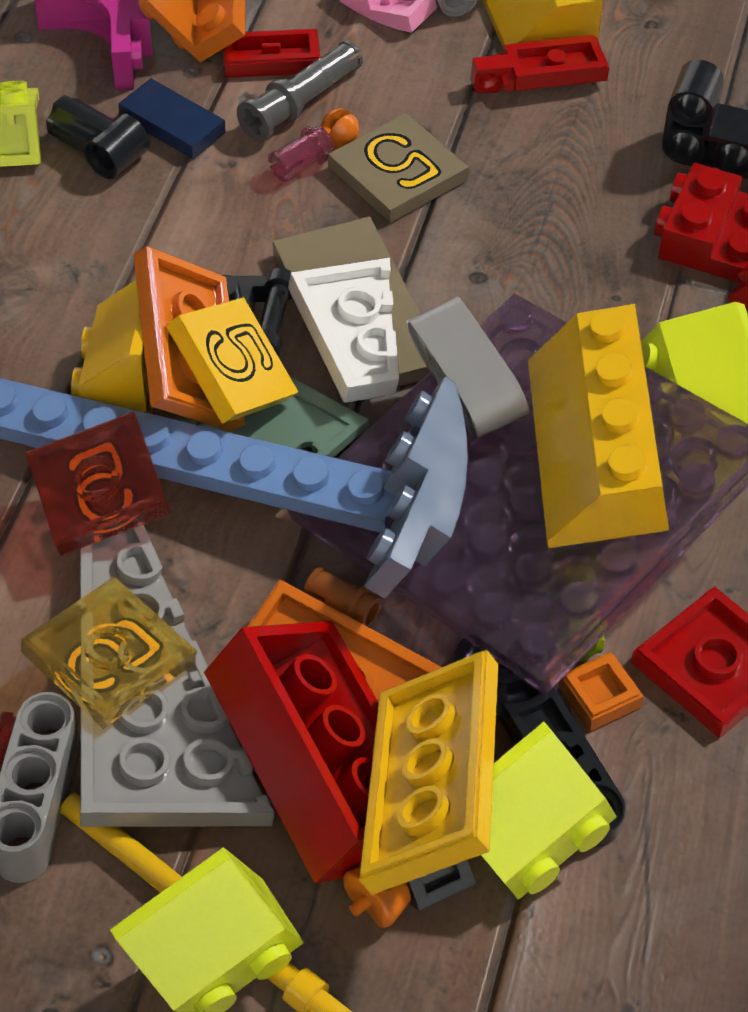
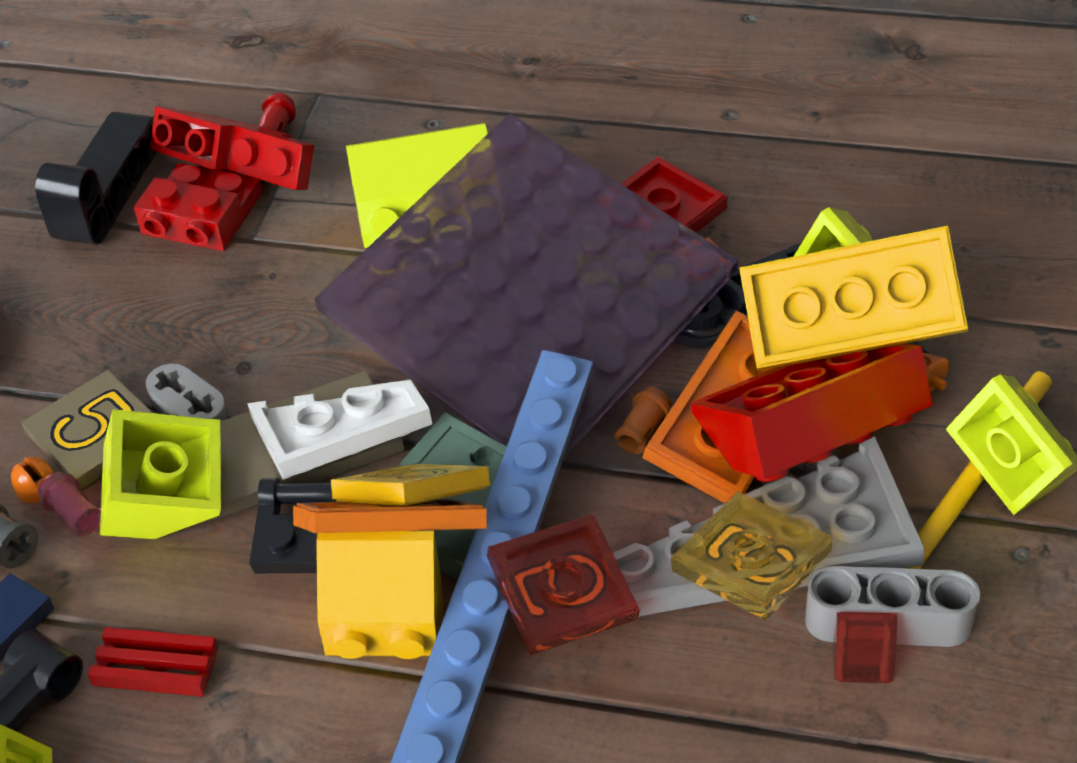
camera: 90 degrees left, 5 degrees down
(121, 194) = (156, 653): none -> red tile
(306, 192) = (159, 474): none -> neon yellow slope
(427, 484) = (569, 318): sand blue slope -> none
(431, 234) = (194, 393): none -> light grey beam
(460, 350) = (423, 307): light grey beam -> none
(596, 431) = (508, 206): yellow slope -> none

